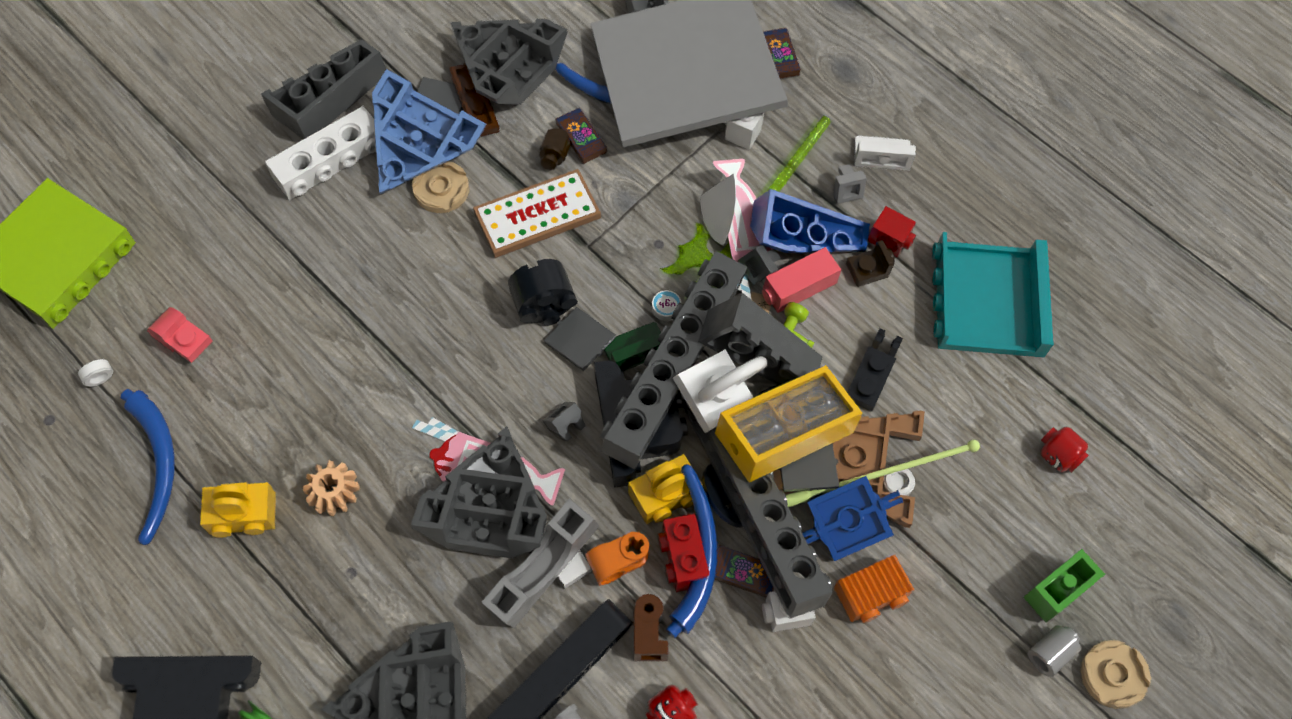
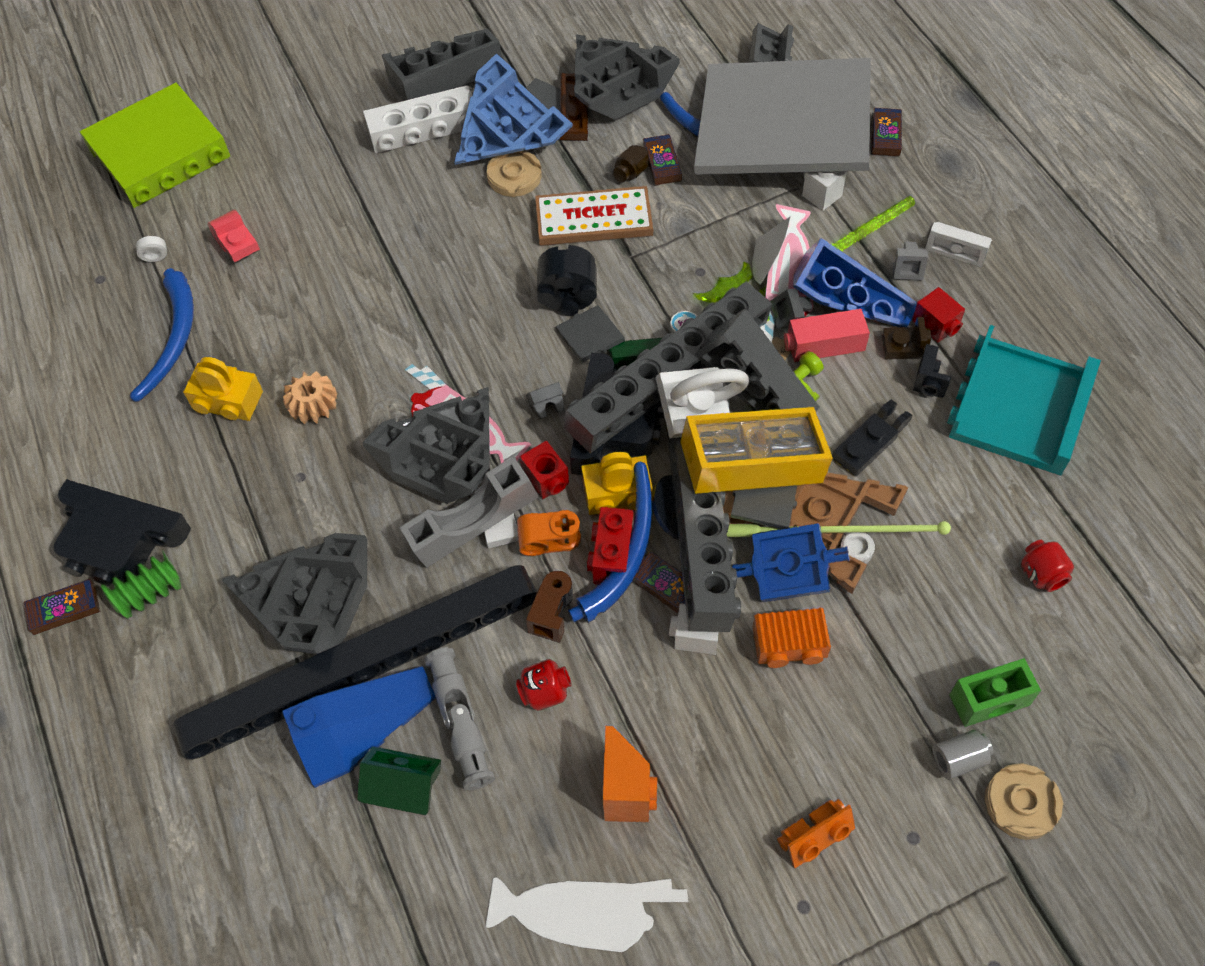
camera: 25 degrees right, 5 degrees down
(589, 482) = (542, 459): none -> red brick
(901, 292) = (928, 379): none -> black bracket

